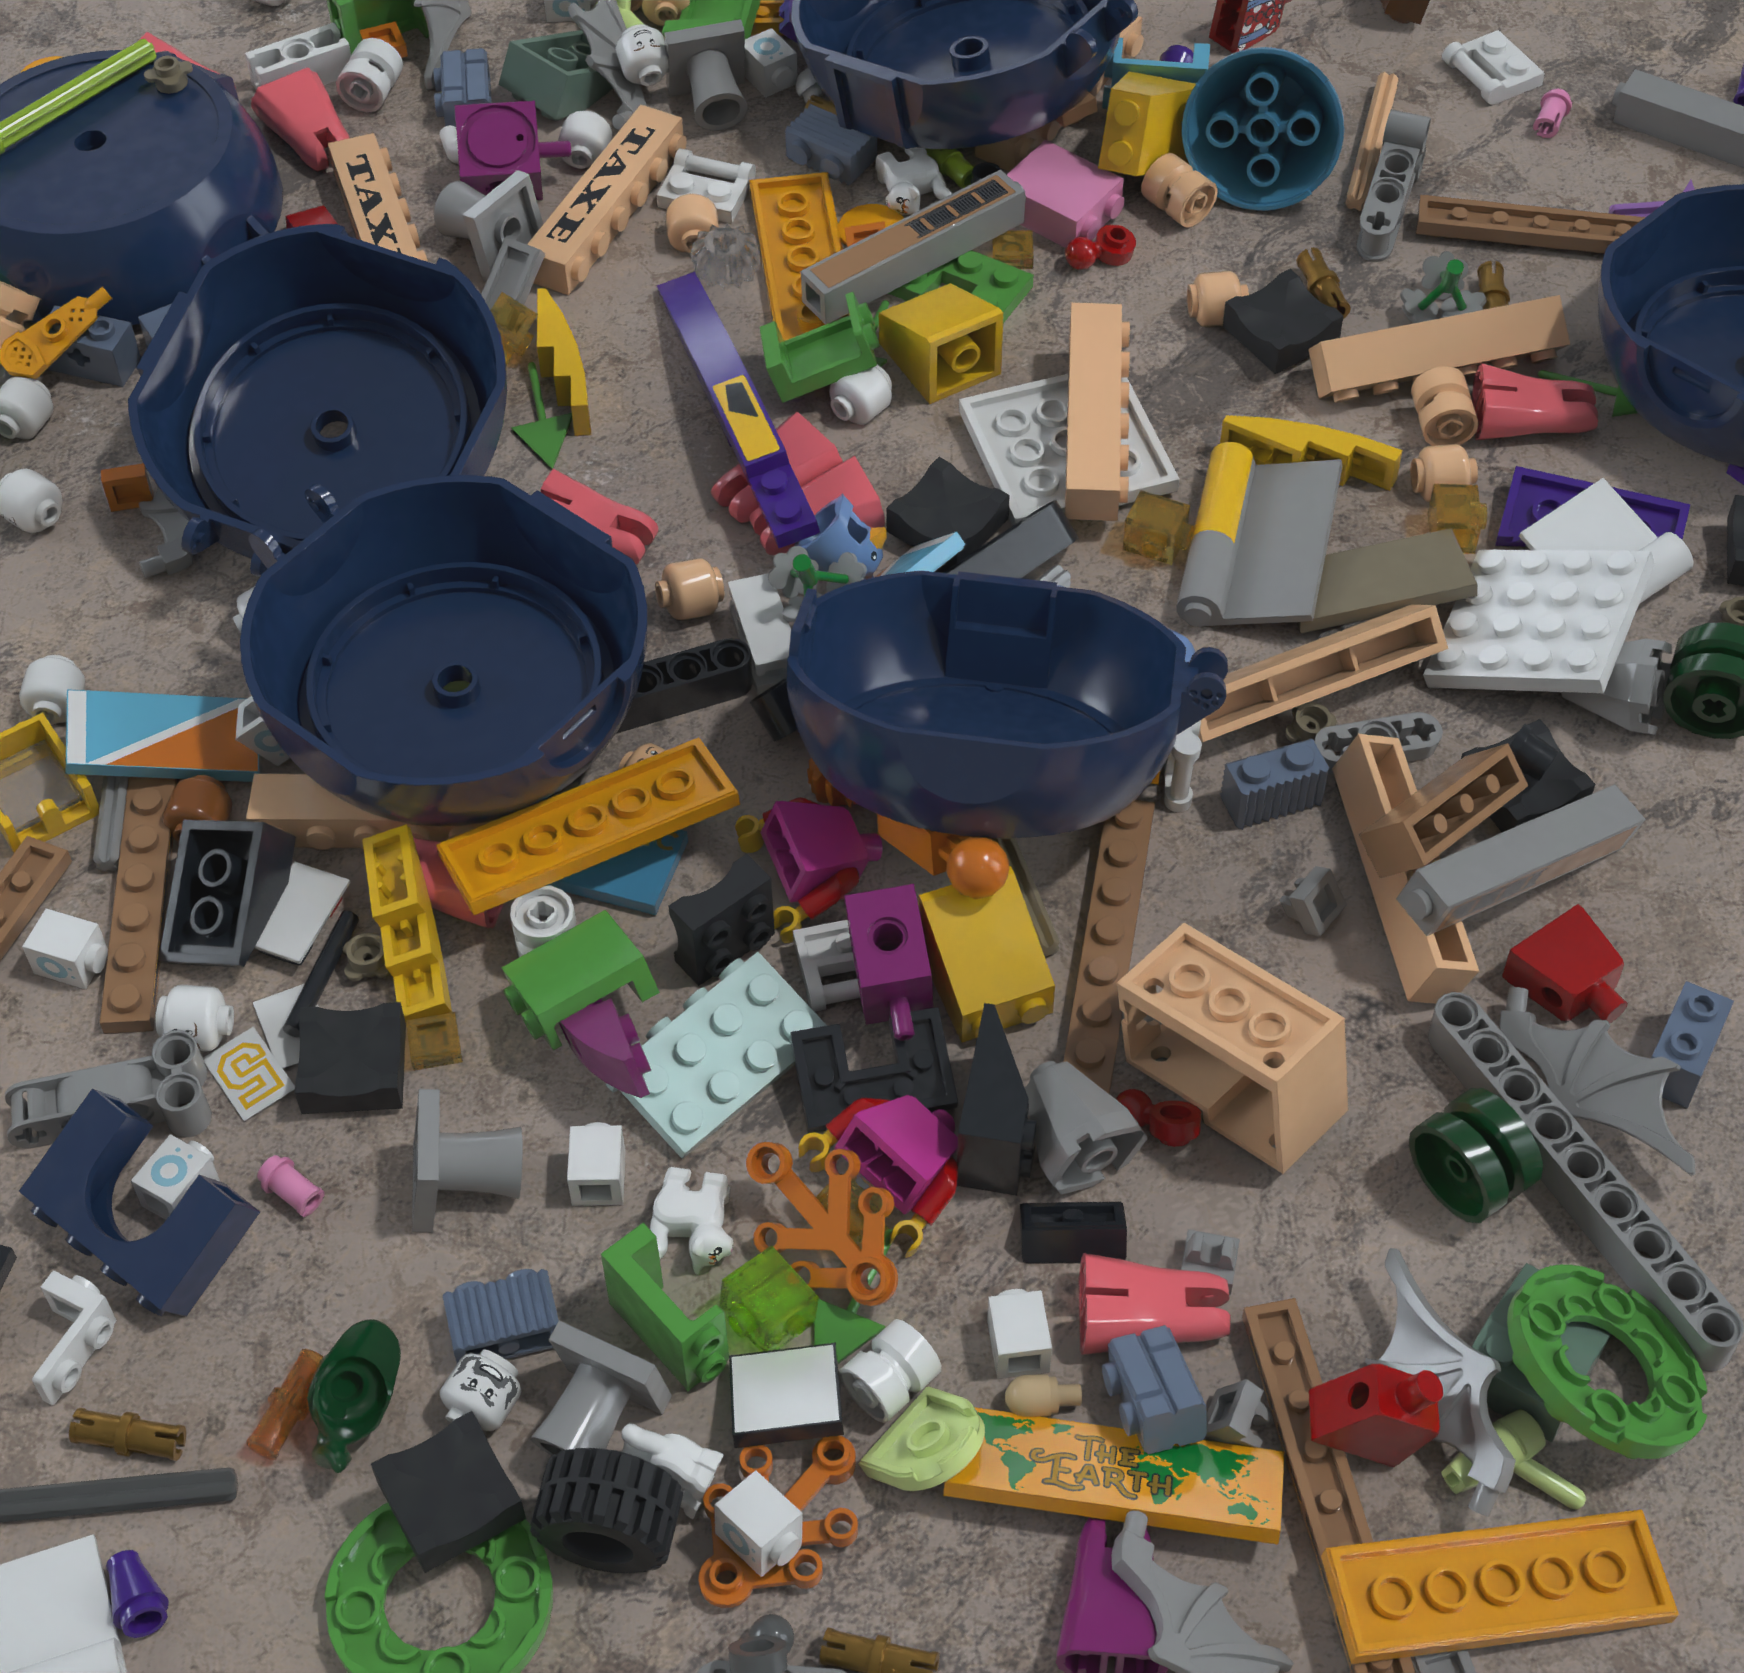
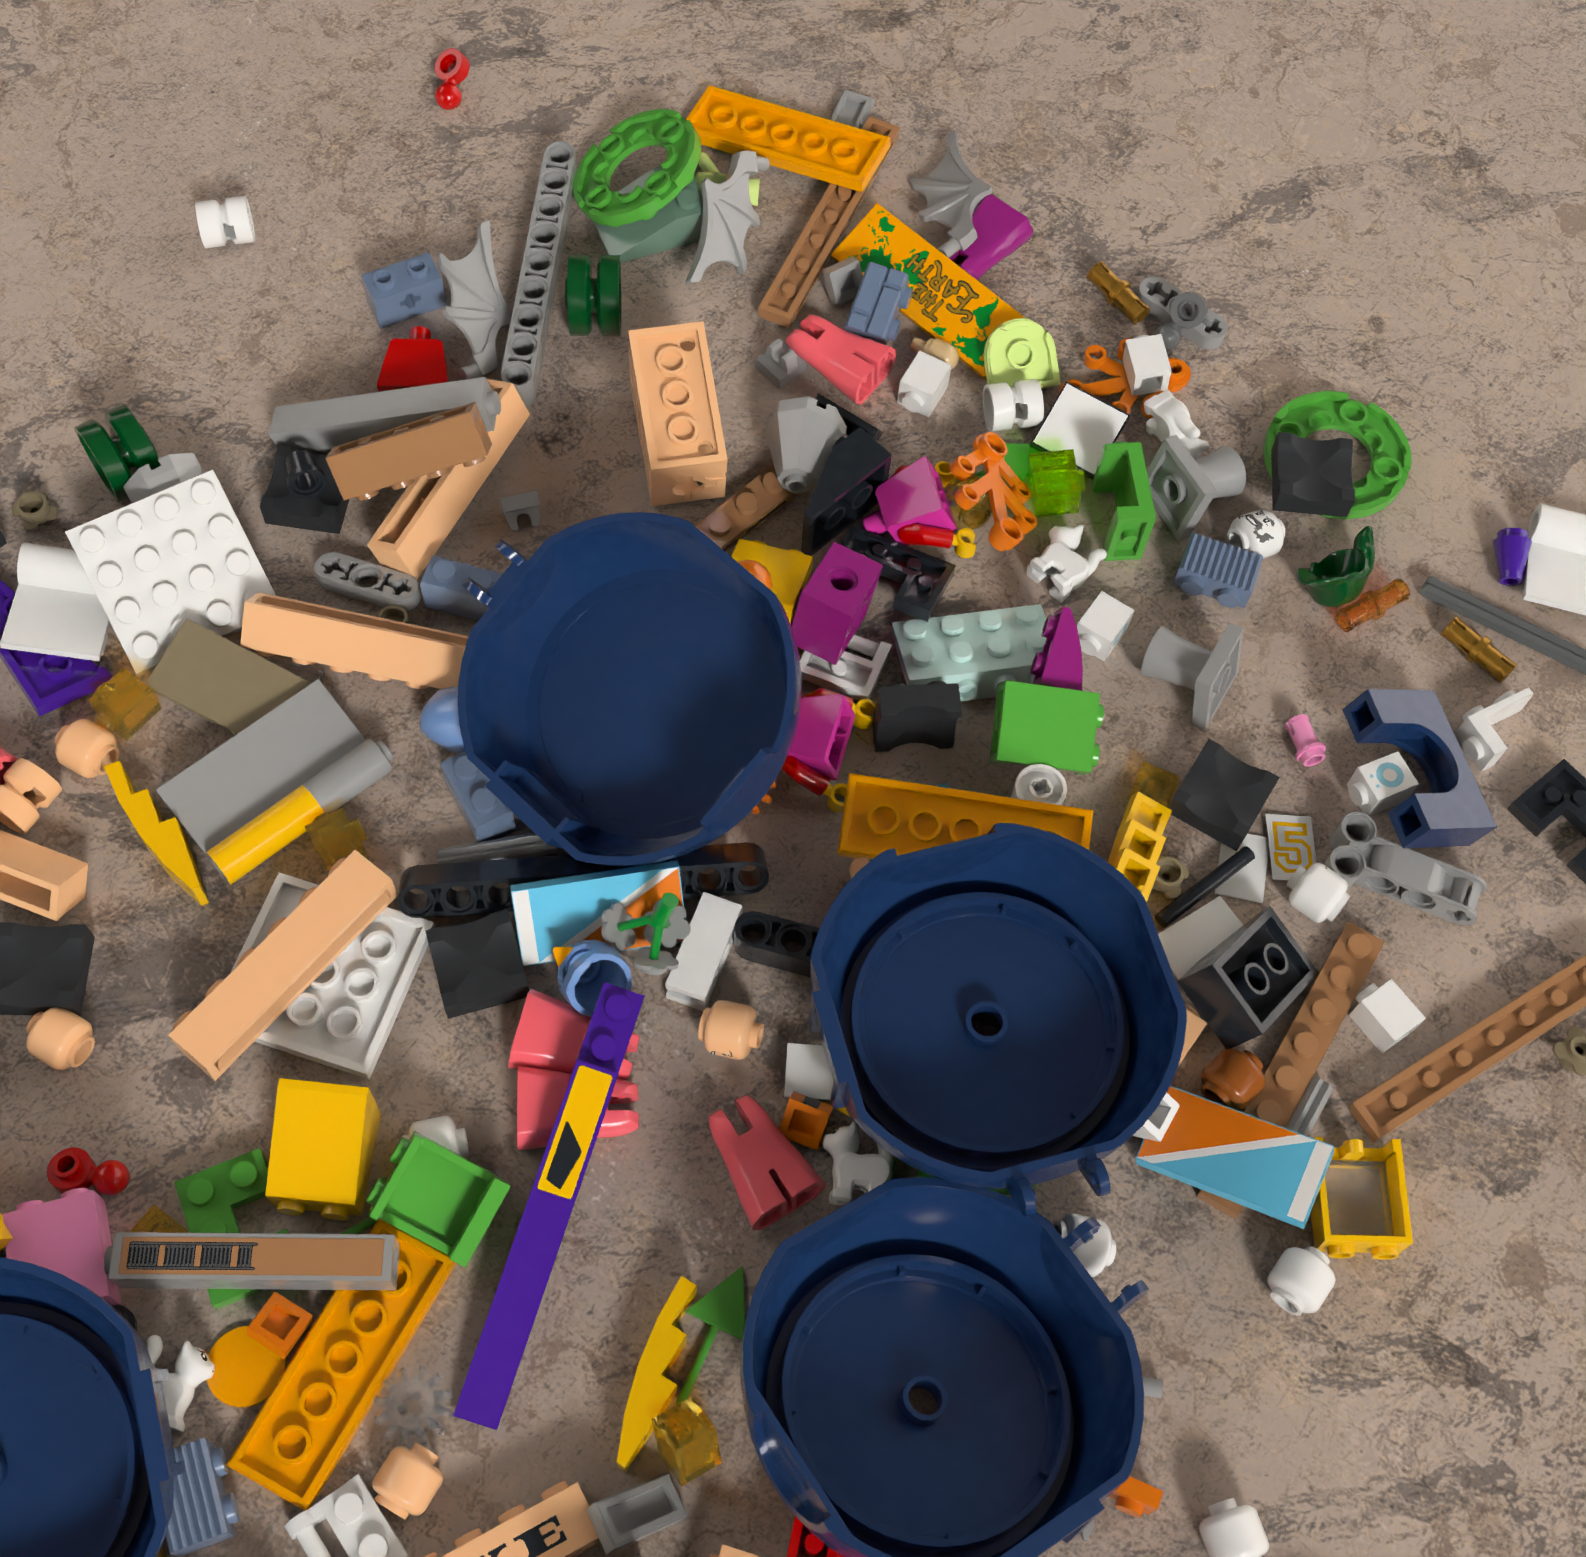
camera: 150 degrees left, 10 degrees up
(606, 1510) = (1232, 408): black tyre -> none
(1168, 1121) = (745, 465): red plate -> none
(1376, 1413) = (778, 213): red torso -> none

